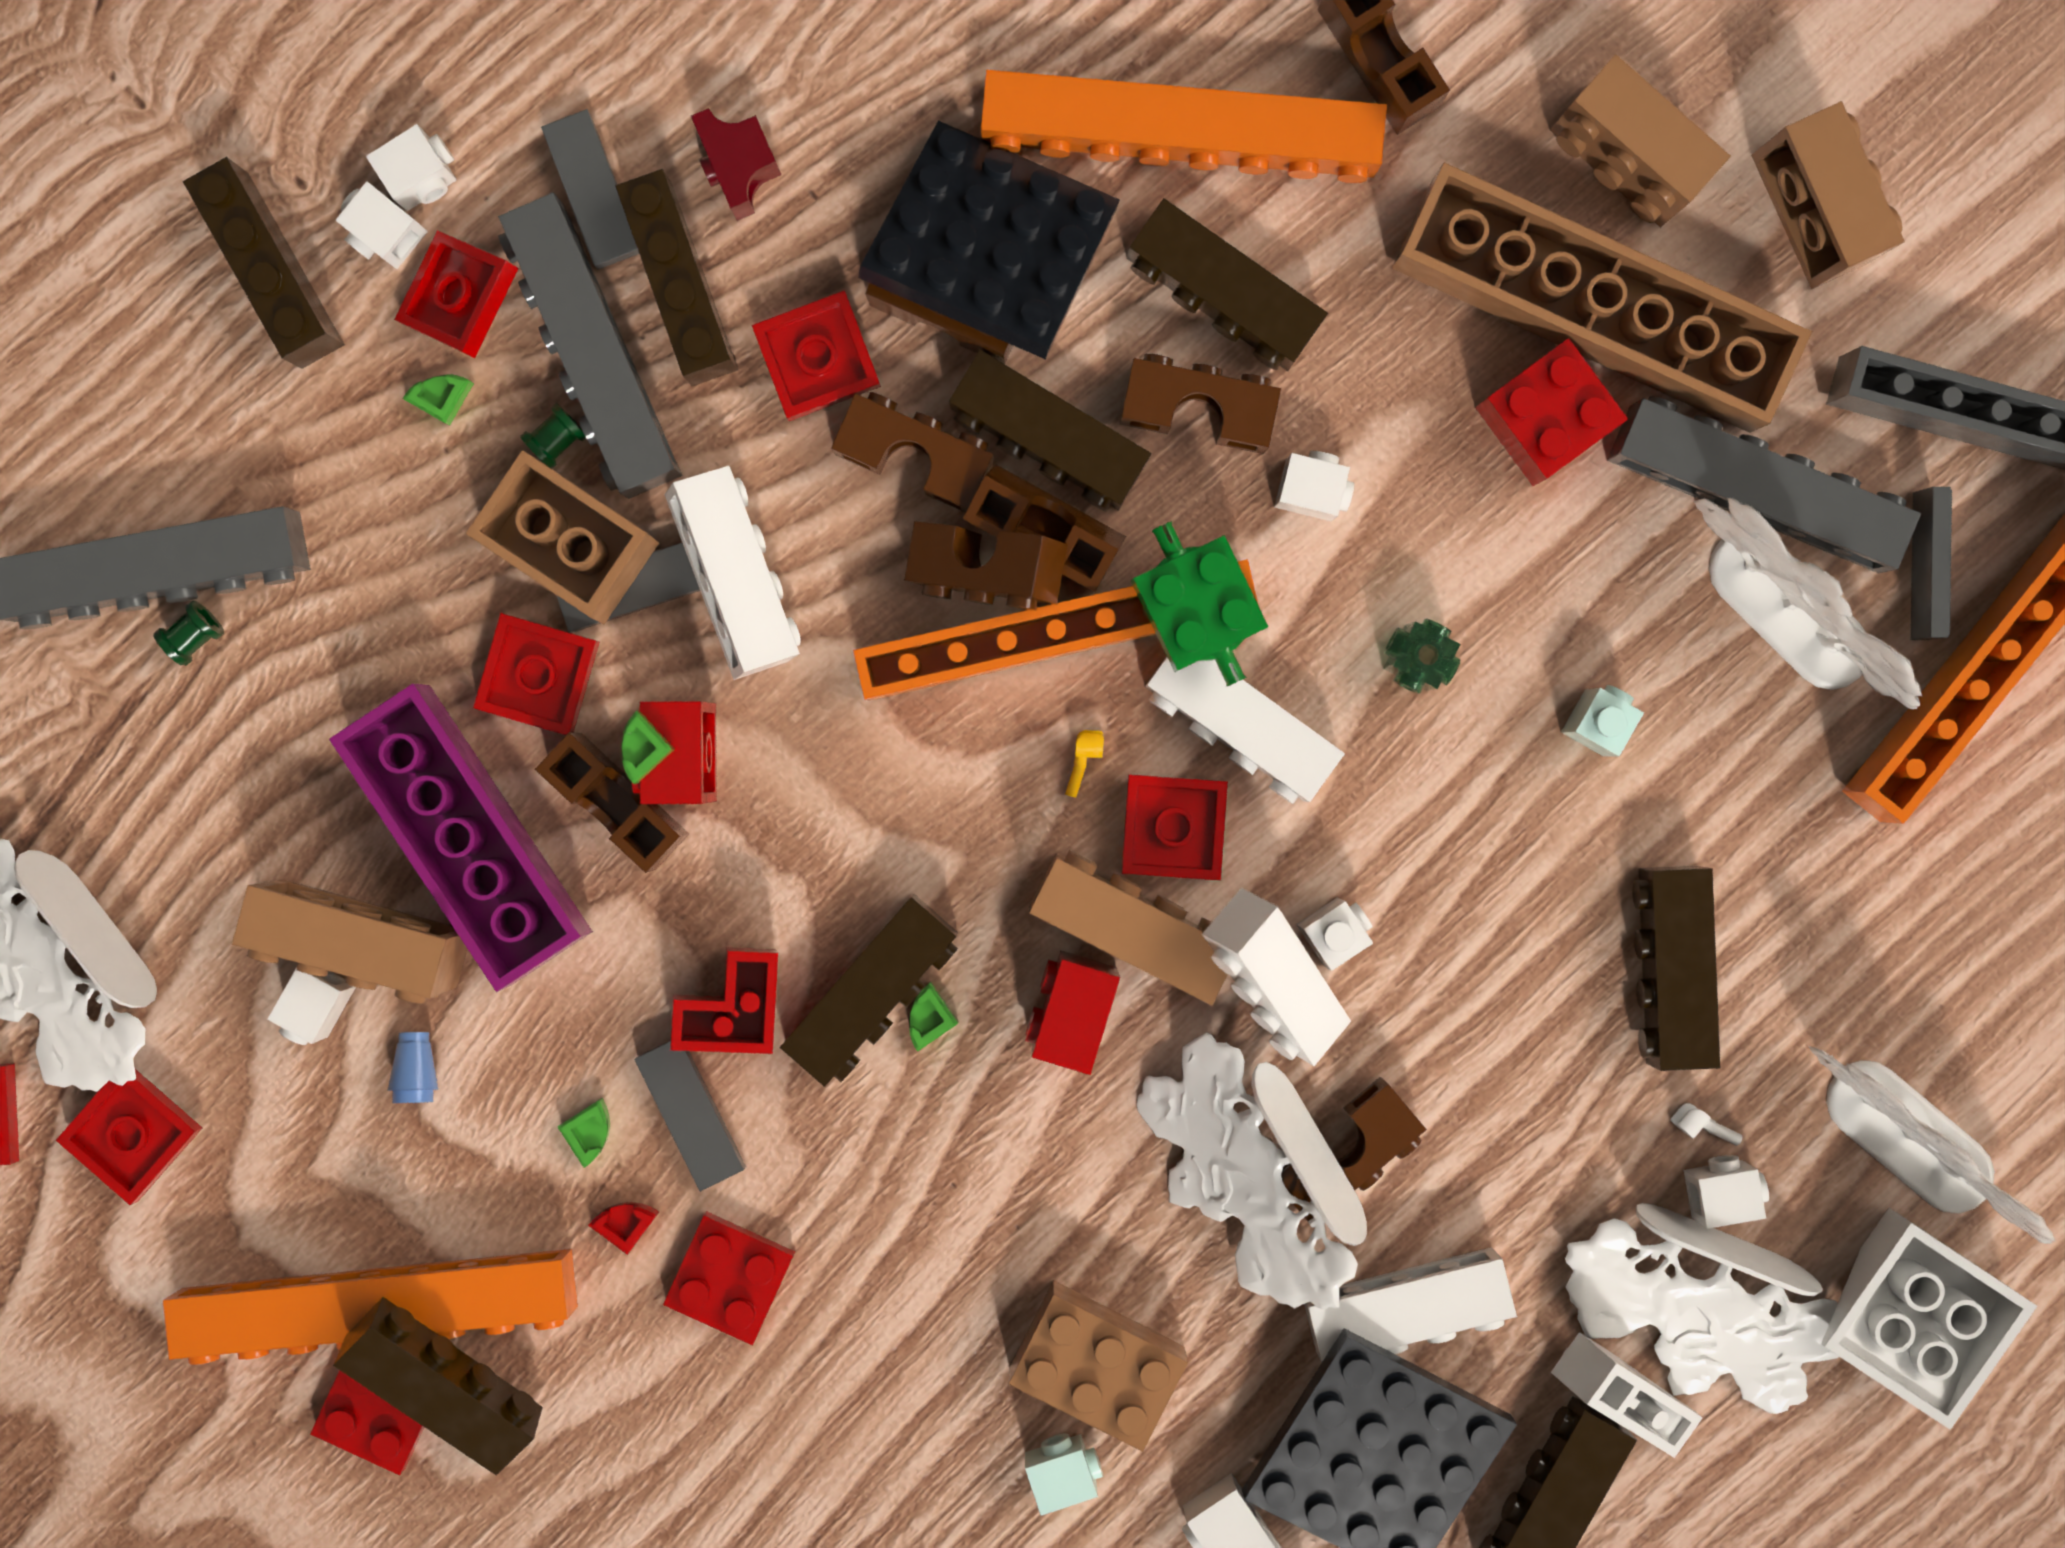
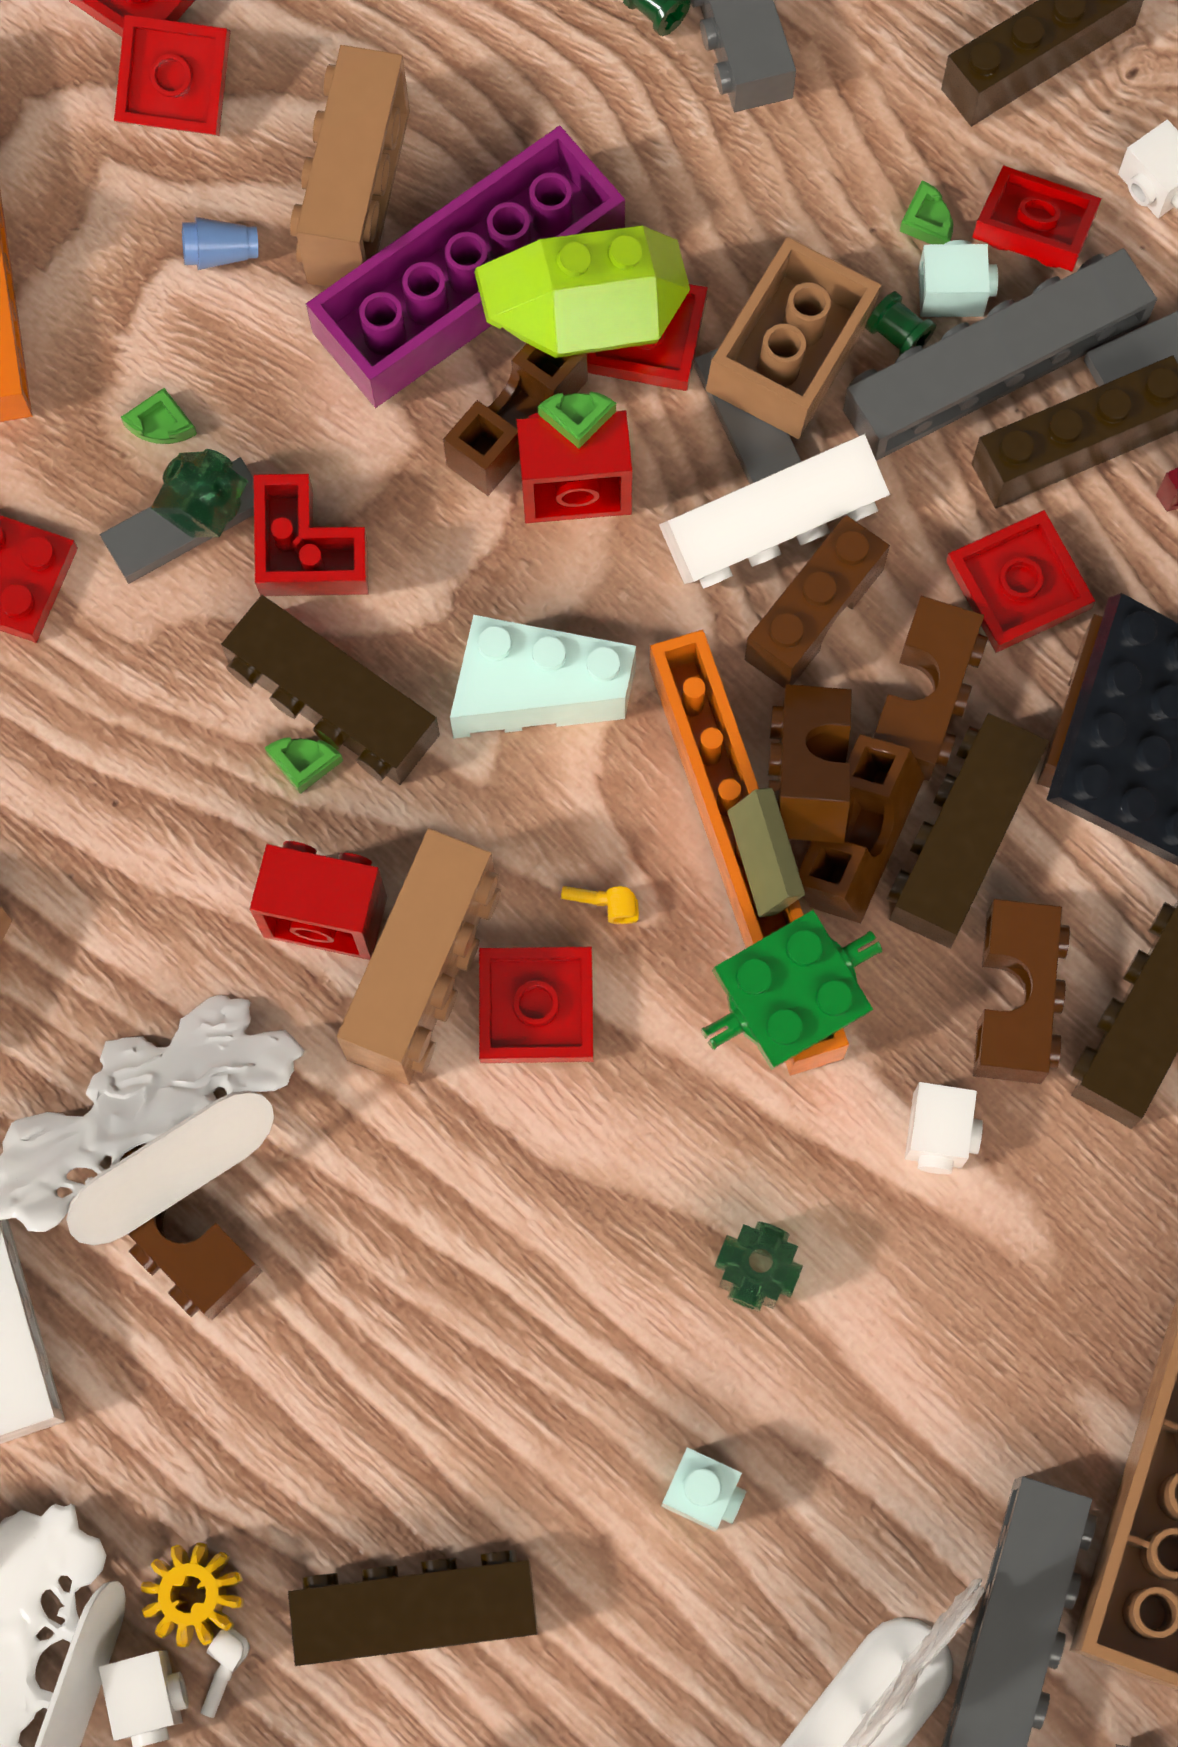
camera: 85 degrees right, 15 degrees down
(234, 1106) = (172, 75): none -> red plate
(310, 1006) = (278, 137): white brick -> none
(379, 226) = (1097, 143): white brick -> none
(510, 378) = (956, 279): none -> light aqua brick
(510, 727) = (586, 290): none -> lime wedge
(624, 1223) = (60, 464): red tile -> none
(676, 1098) = (200, 493): none -> clear green brick
(824, 542) = (805, 611): none -> reddish brown arch
(875, 803) = (538, 677): none -> light aqua wedge
(1076, 614) = (766, 852): none -> olive tile
(1248, 724) = (659, 1077): white brick -> none
(1276, 977) = (373, 1109): white brick -> none
(1337, 932) = (428, 1194): white brick -> none
(1551, 413) = (1062, 1395): red brick -> none
(1655, 1166) = (183, 1576): none -> yellow gear

